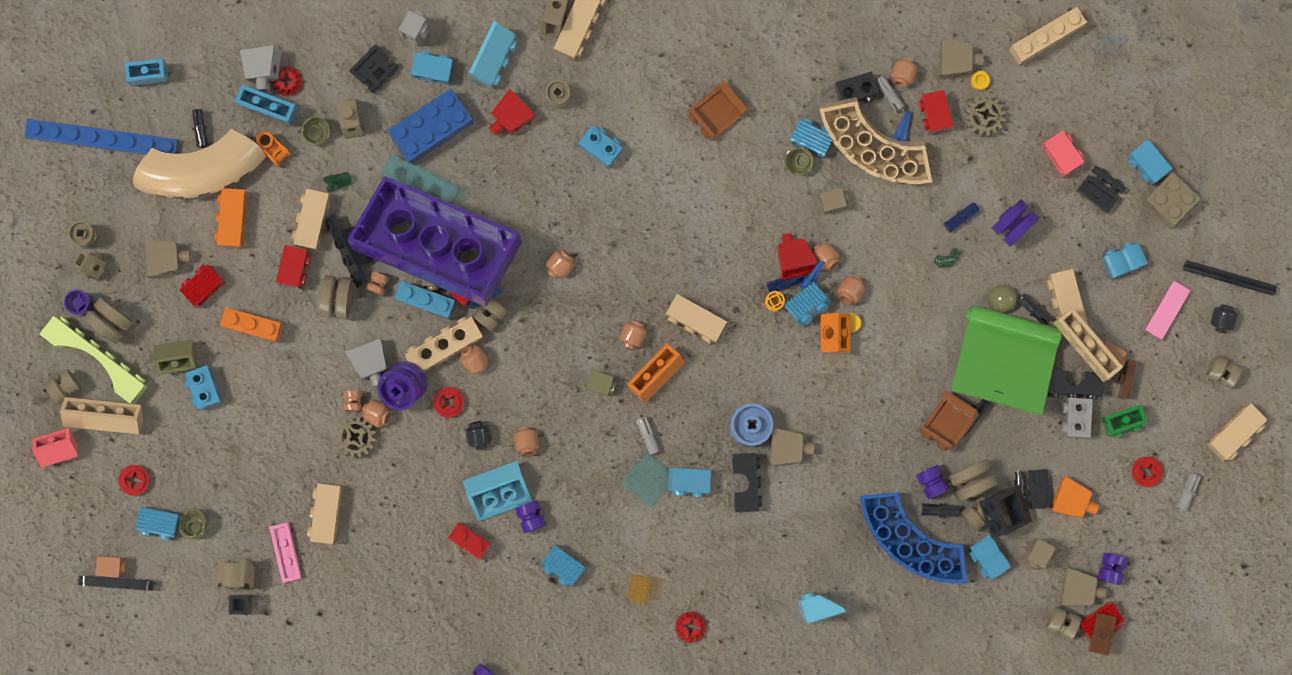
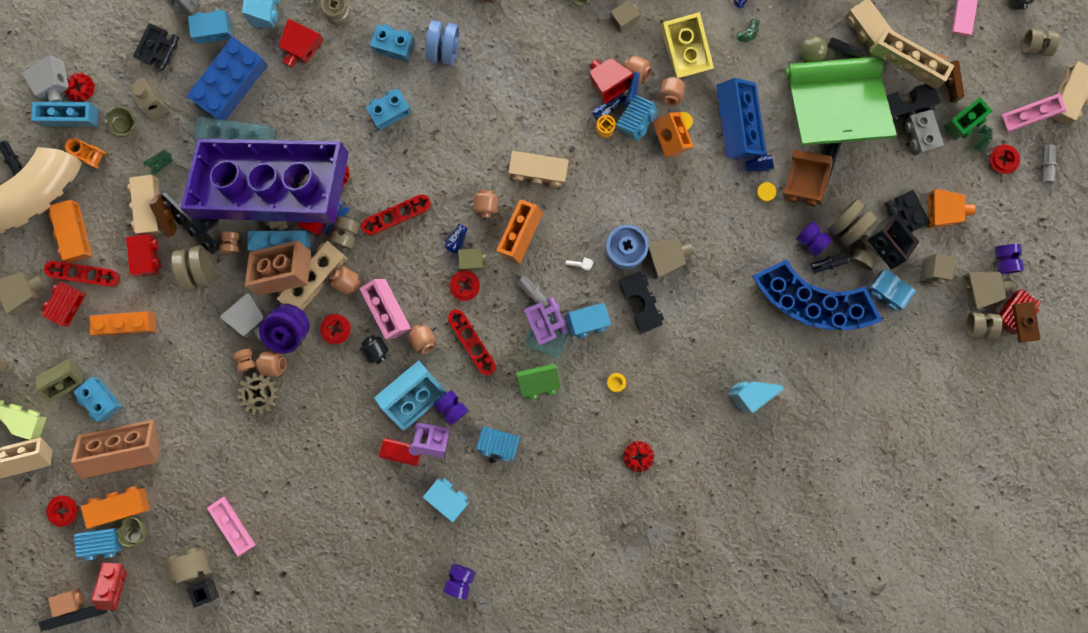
camera: 20 degrees left, 0 degrees up
(156, 566) = (109, 586): none -> red brick
(185, 494) = (115, 507): none -> orange brick
(205, 440) = (116, 449): none -> nougat slope
(229, 261) = (82, 271): none -> red beam
(325, 513) = (255, 476): tan brick -> none
(326, 237) = (163, 216): none -> reddish brown plate
(416, 327) = (278, 268): none -> nougat brick
(495, 600) = (446, 499): none -> medium azure brick
(502, 400) = (385, 308): none -> bright pink brick
(506, 542) = (435, 443): none -> medium lavender plate
(544, 309) = (397, 217): none -> red beam
(560, 264) = (394, 163): nougat head -> none
(573, 209) = (388, 109): none -> dark azure brick
(575, 461) = (474, 340): none -> red beam
(585, 395) = (463, 276): none -> red gear
(593, 358) = (456, 239): none -> clear blue cone
(622, 522) = (539, 381): none -> bright green slope
(639, 589) = (577, 439): clear yellow brick -> none
(643, 467) = (540, 322): none -> medium lavender plate
(650, 167) = (442, 43): none -> medium blue wheel
(695, 549) = (616, 382): none -> yellow tile
(708, 427) = (586, 264): none -> white hand
(881, 252) = (687, 45): none -> light yellow slope
(905, 420) = (766, 192): none -> yellow tile
(907, 341) = (741, 119): none -> blue slope
(910, 391) = (760, 164): none -> clear blue cone
(1136, 446) = (987, 136): none -> clear green arm
(1190, 437) = (1034, 112): none -> bright pink tile

